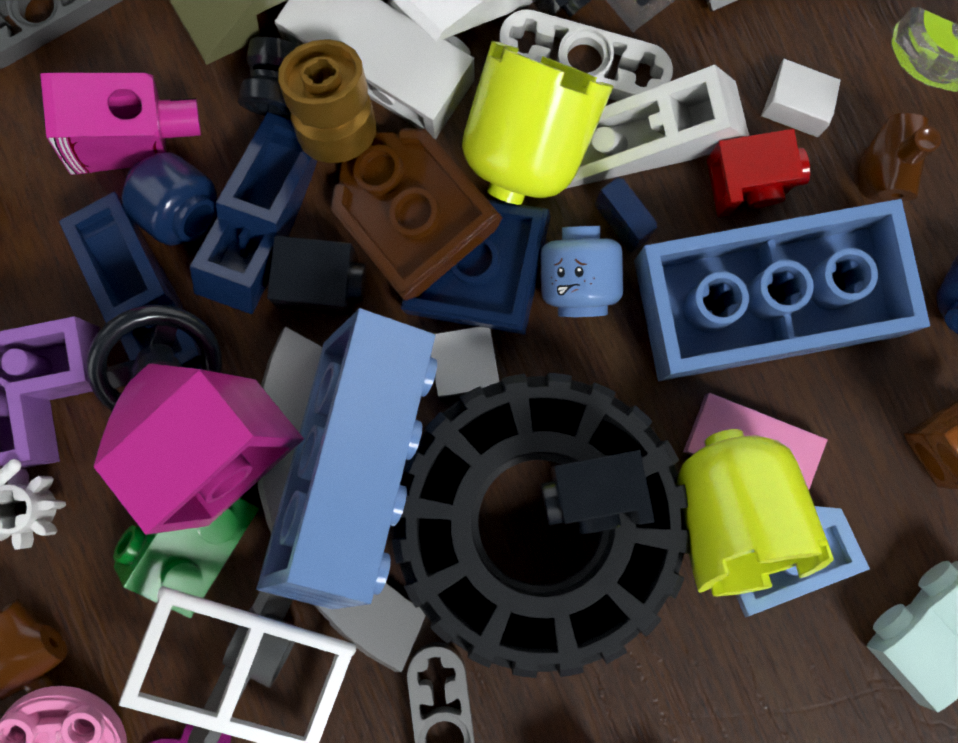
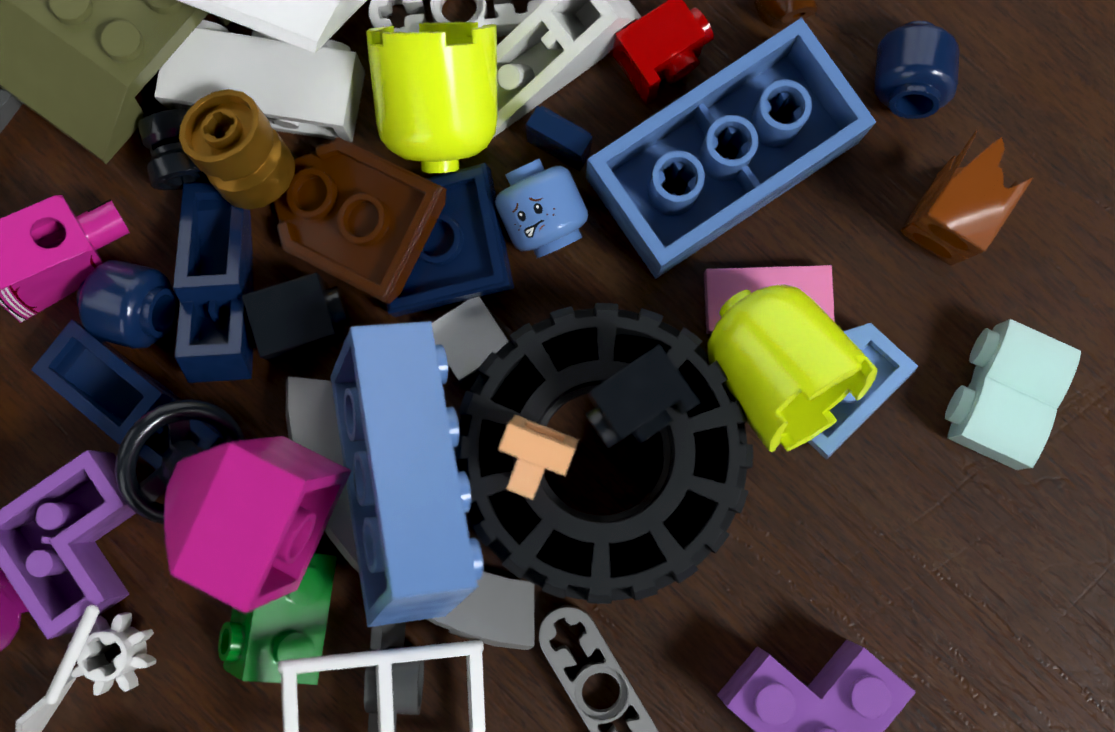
camera: 25 degrees left, 0 degrees up
(482, 498) = (536, 450): none -> light nougat tile

